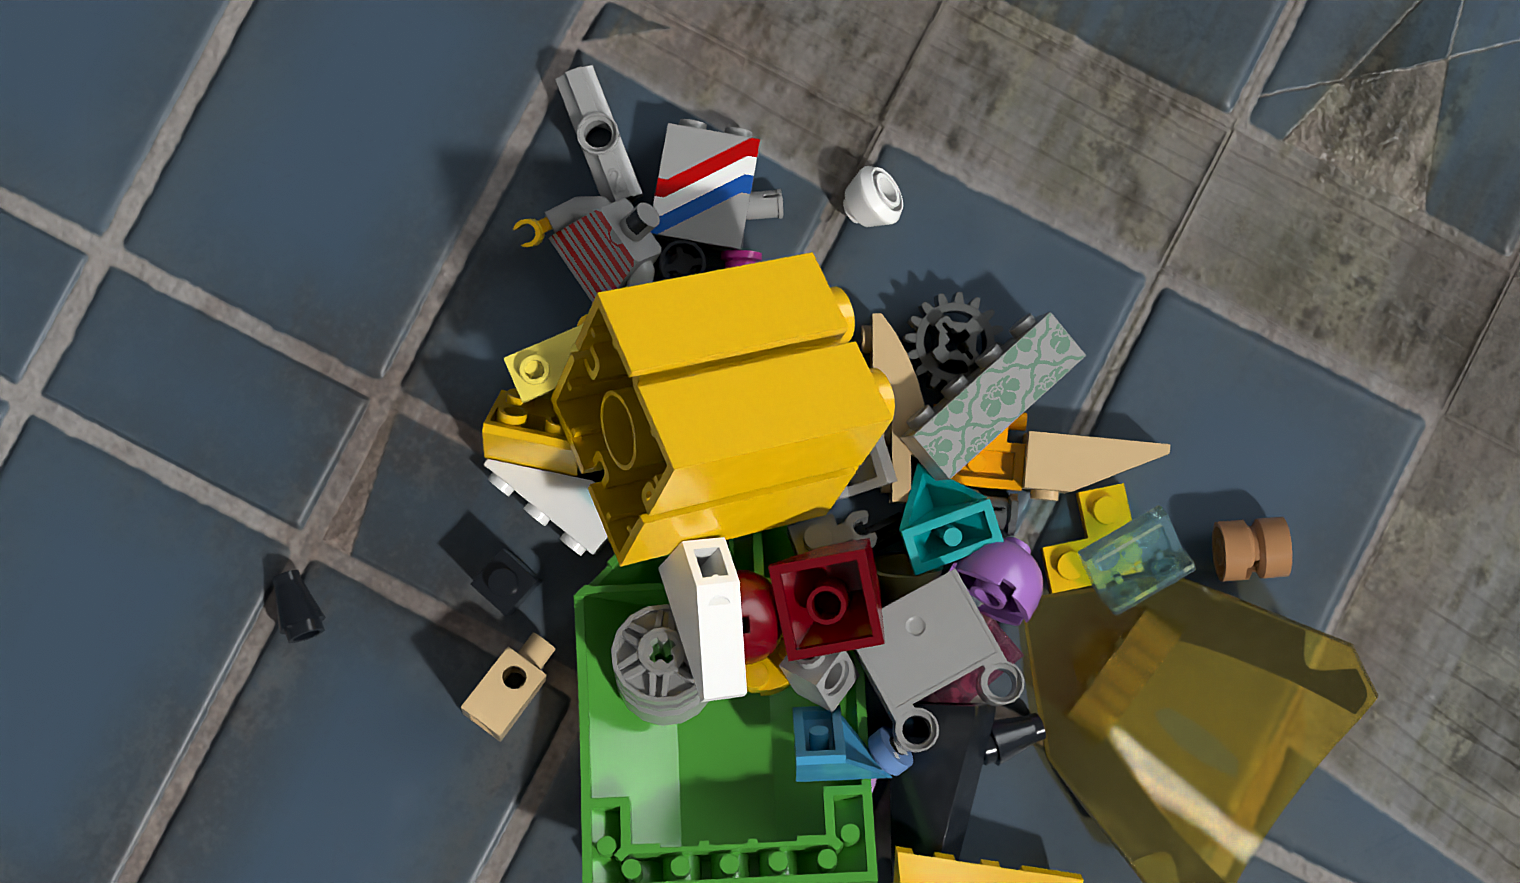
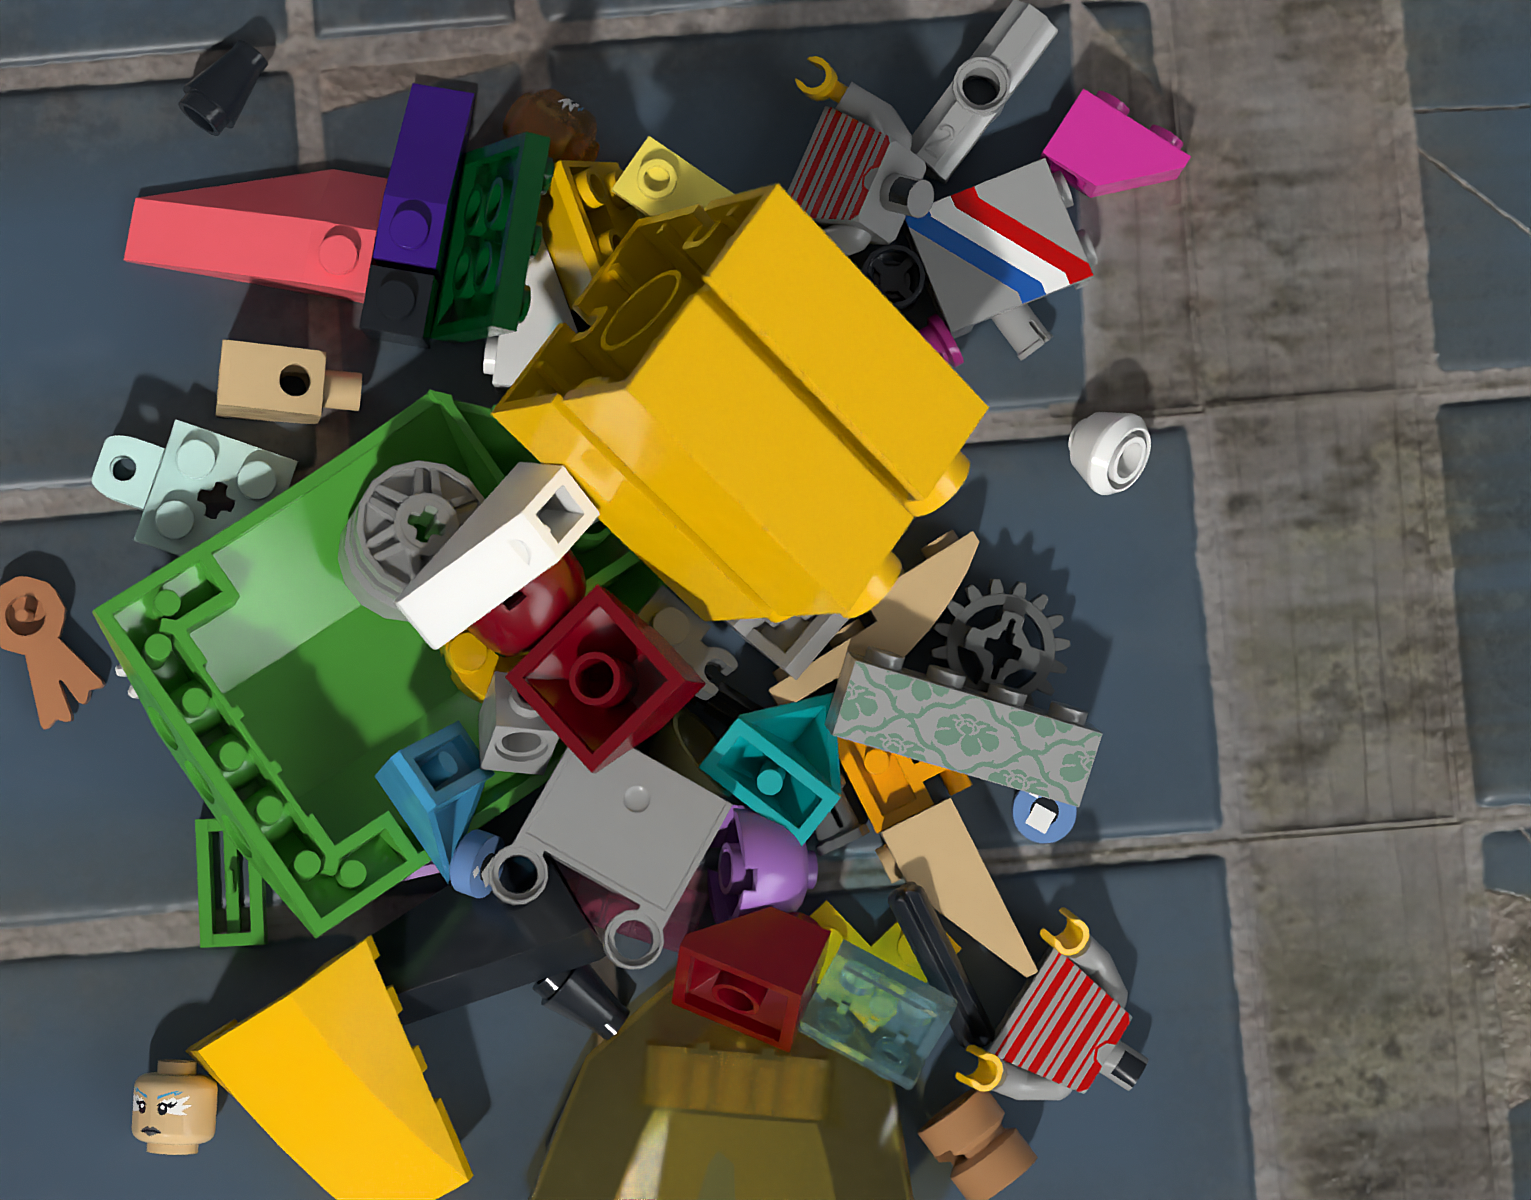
camera: 60 degrees right, 0 degrees up
(412, 625) = (276, 232): none -> coral wedge
(436, 517) = (424, 181): none -> dark purple slope
(456, 420) = (558, 117): none -> clear orange head
(503, 497) = (493, 239): none -> dark green plate
(523, 790) = (173, 476): none -> light aqua plate
(686, 82) = (1108, 151): none -> dark pink slope
(1063, 620) = (753, 973): none -> dark red slope
(1074, 384) = (1041, 818): none -> medium blue tile
(1127, 501) = (940, 963): none -> black axle
(1210, 451) = (1061, 1025): none -> torso

